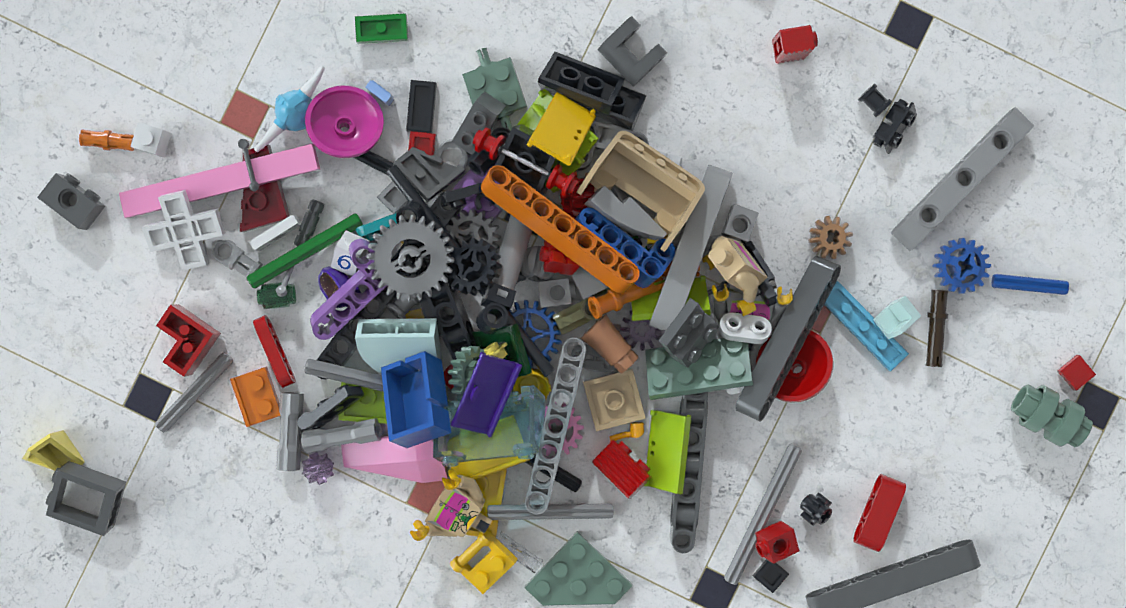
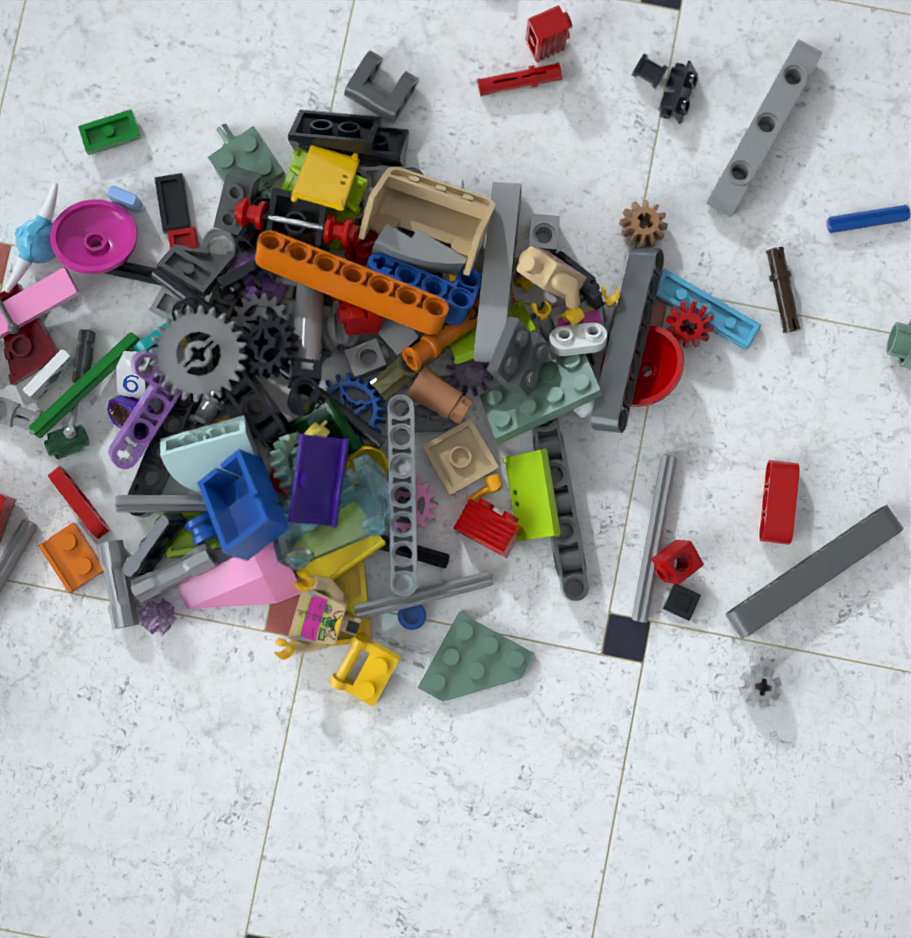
camera: 15 degrees left, 5 degrees down
(374, 405) = (201, 529): none -> blue wheel
(536, 527) = (412, 617): none -> blue tile
(788, 78) = (519, 79): none -> red pin
(816, 509) = (709, 515): black gear -> none
(855, 337) = (694, 315): none -> red gear
(897, 317) = (737, 288): light aqua panel -> none
(965, 256) = (795, 204): blue gear -> none

